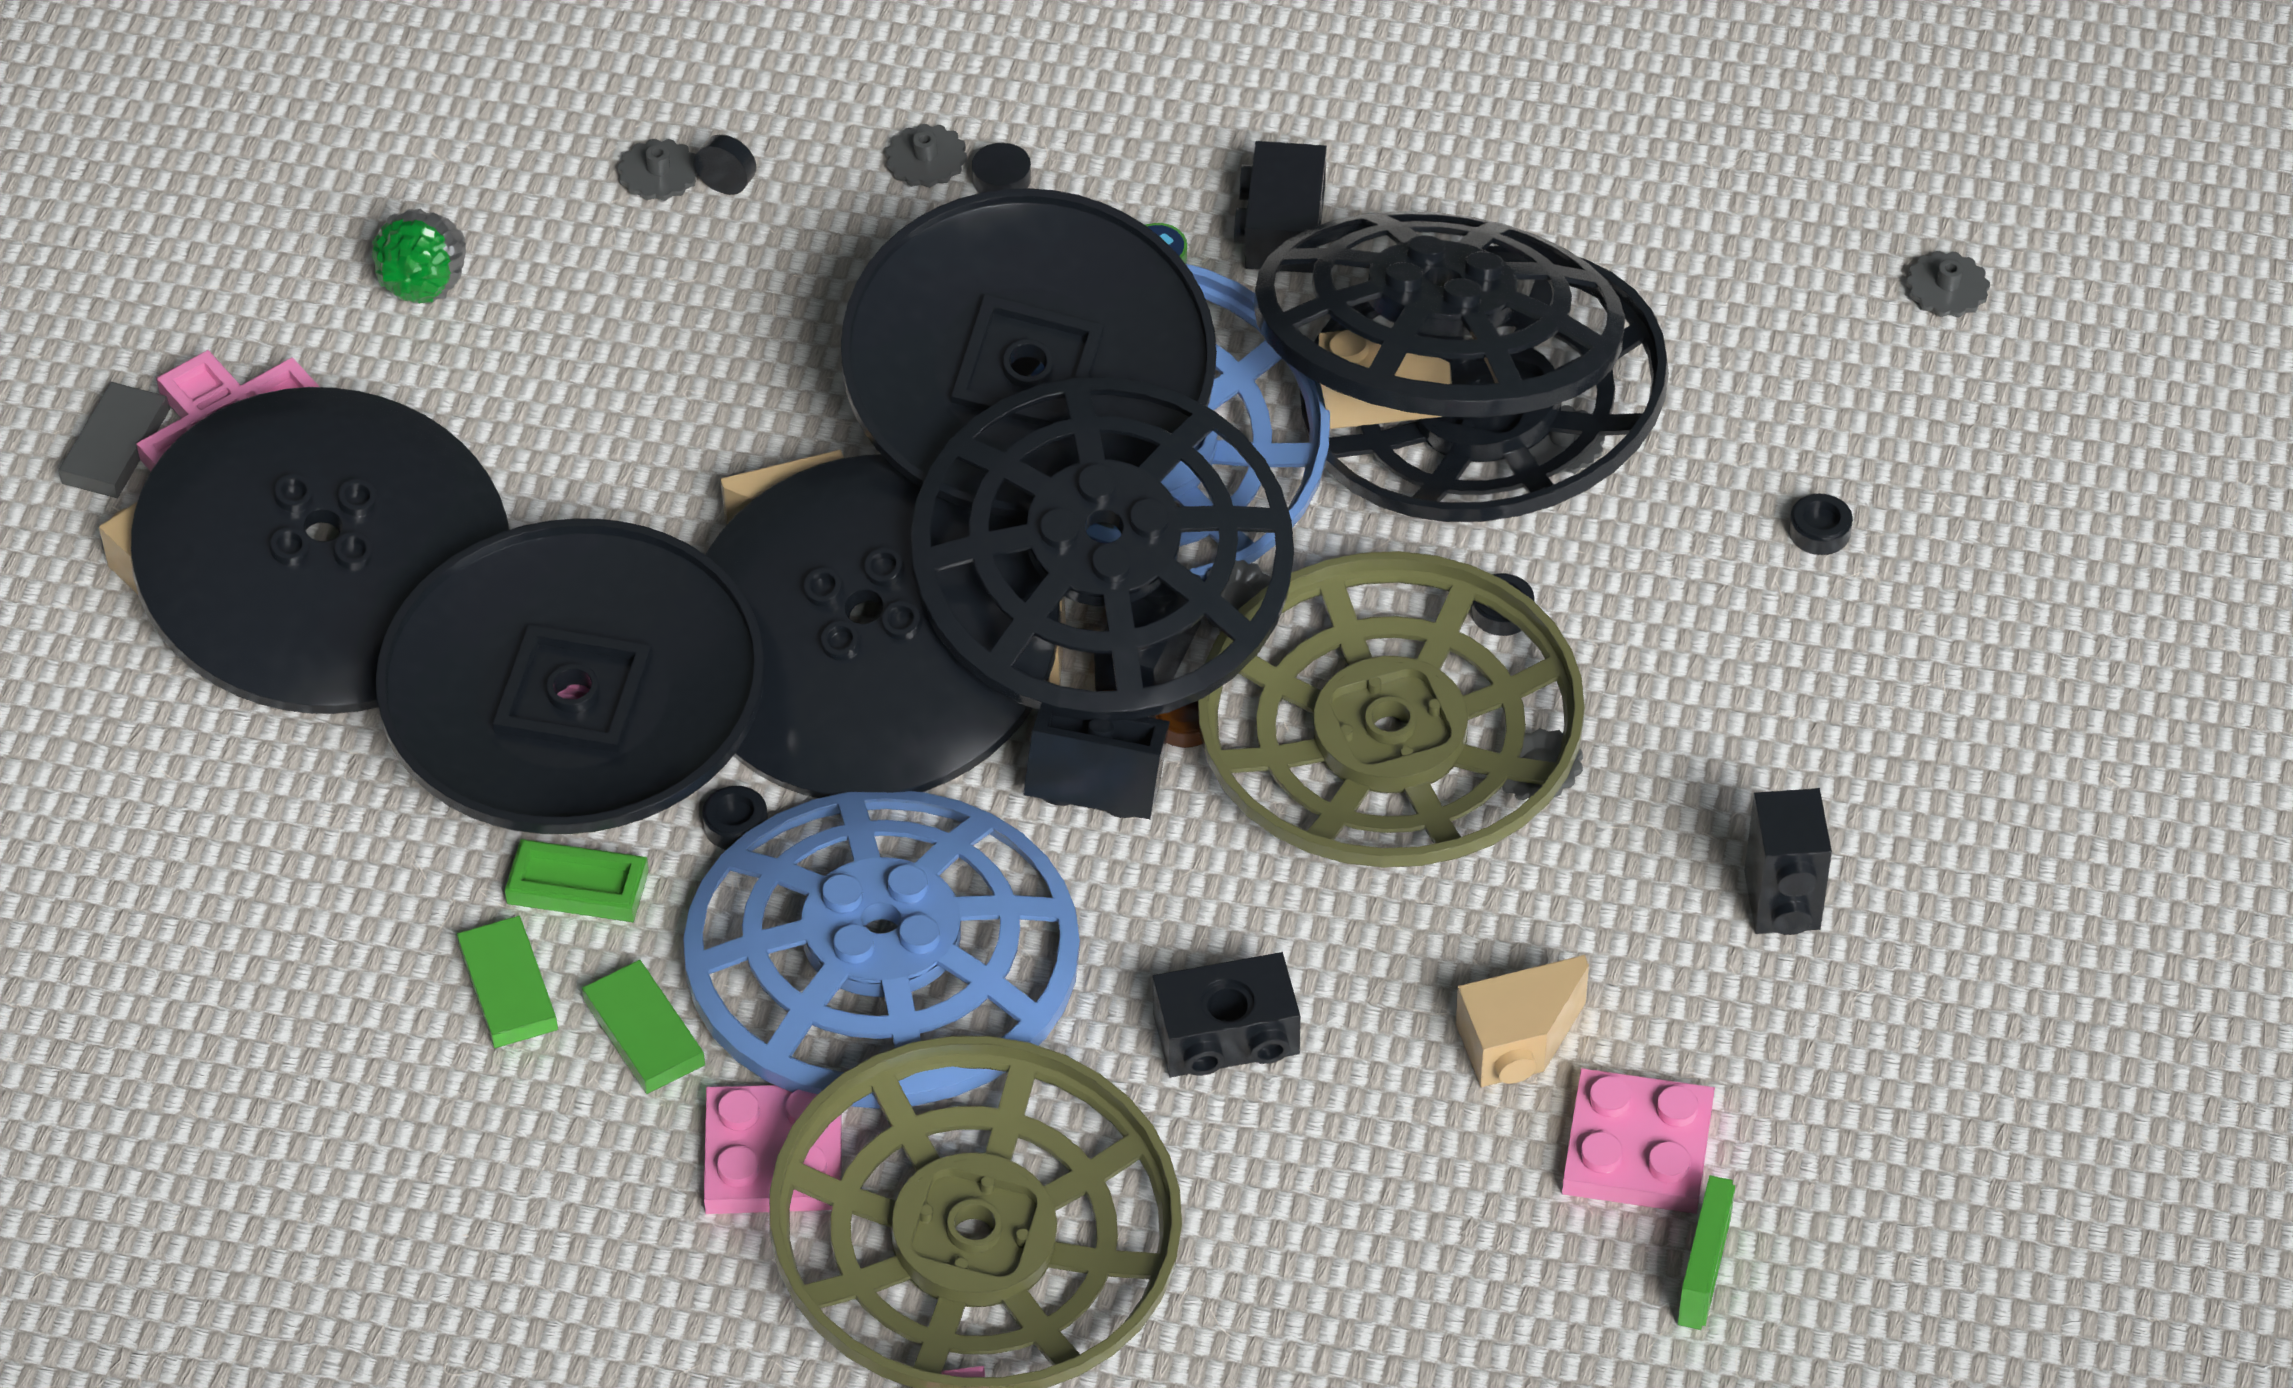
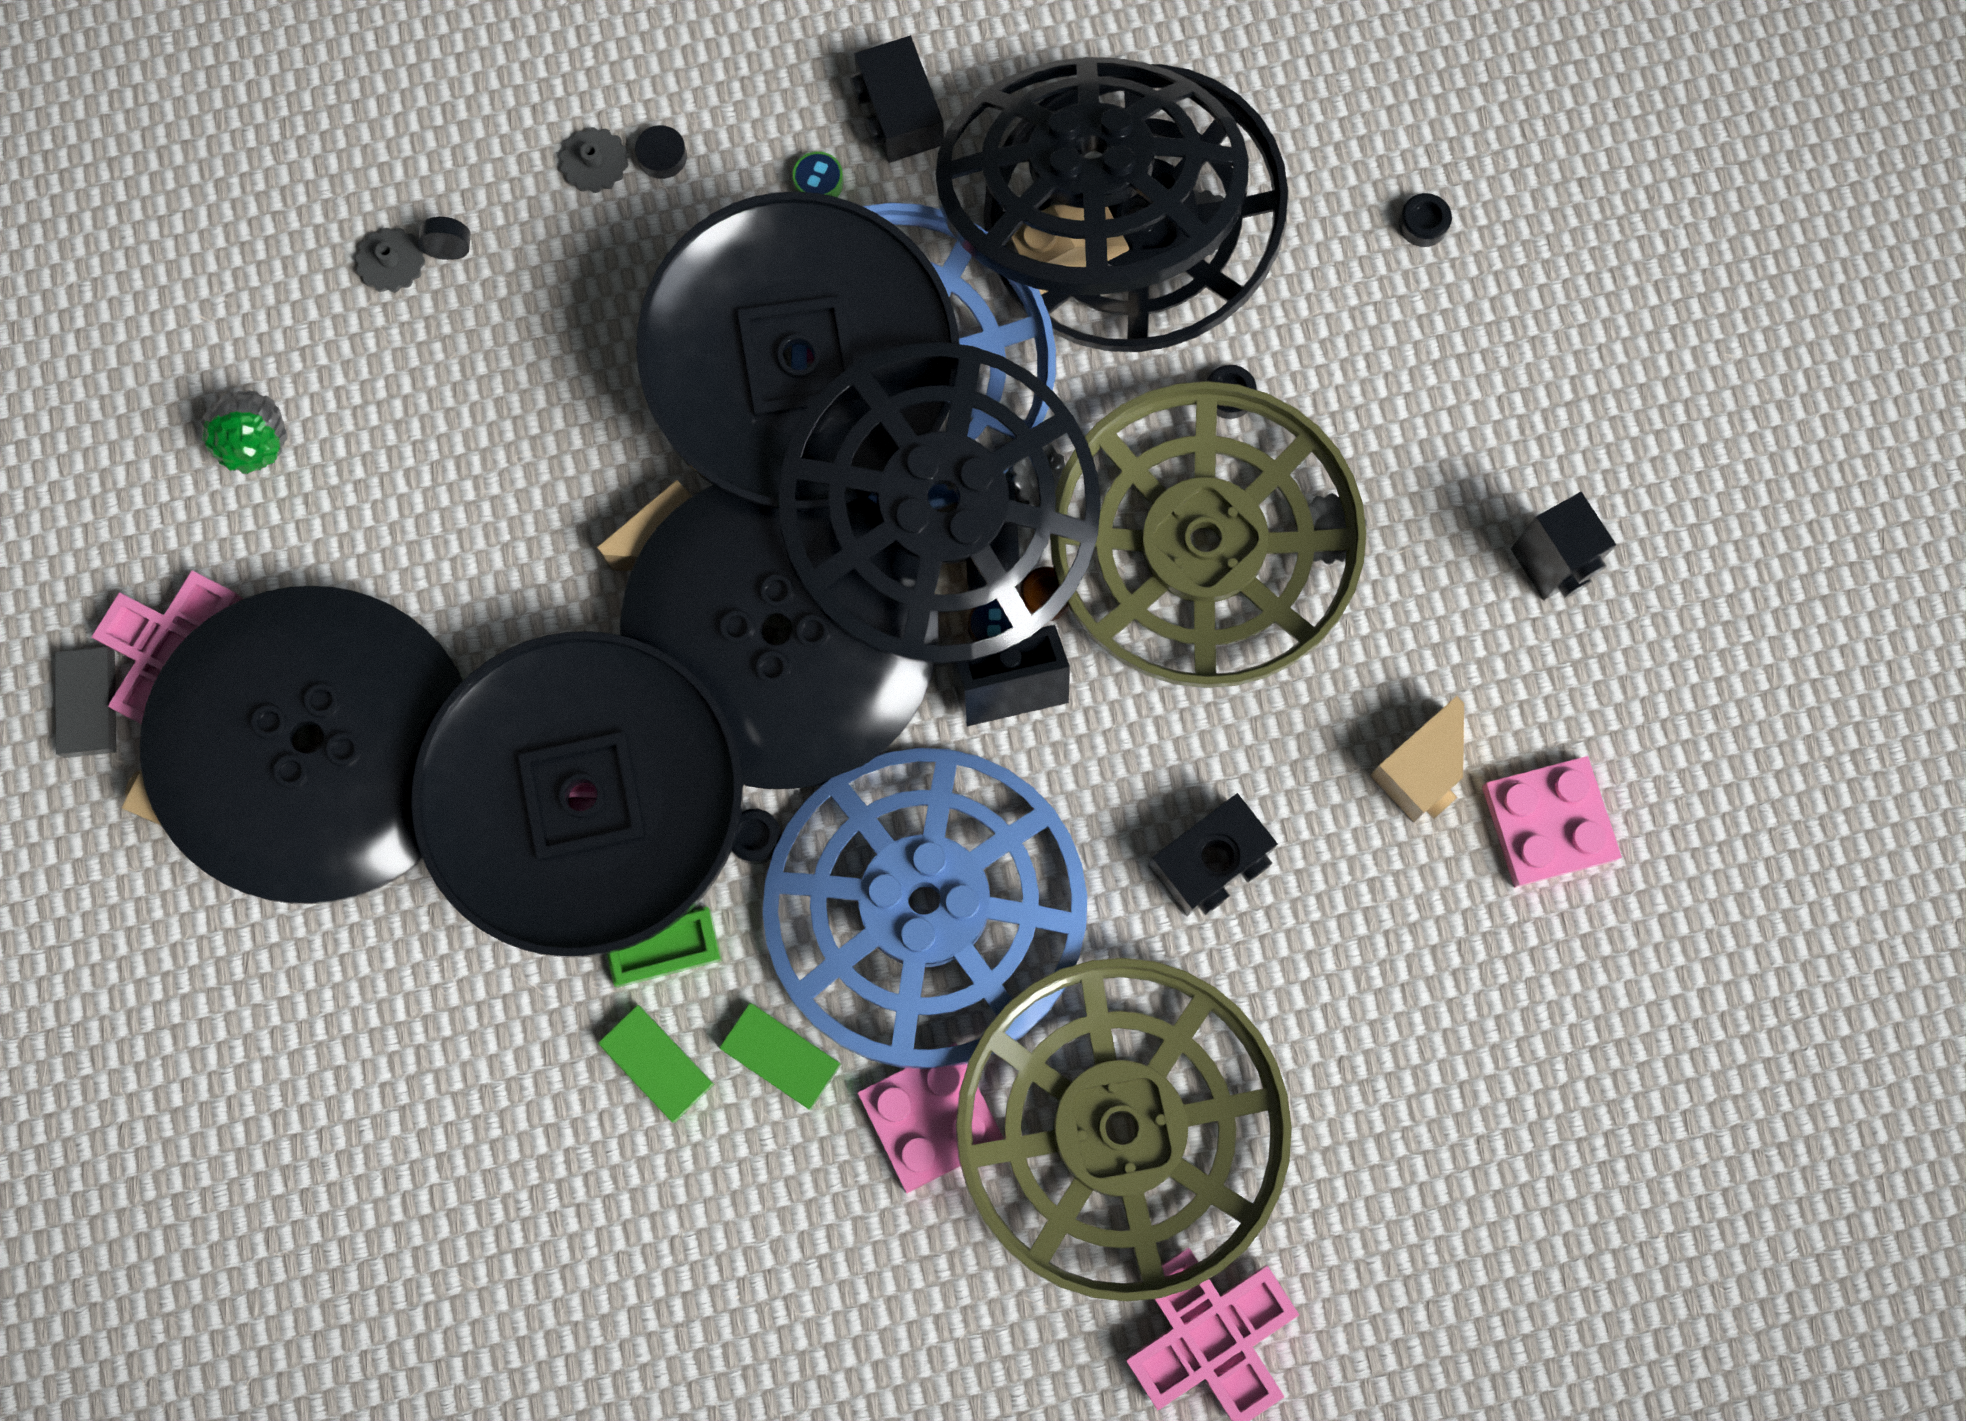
camera: 25 degrees left, 25 degrees up
(1706, 1253) = (1651, 903): bright green tile -> none

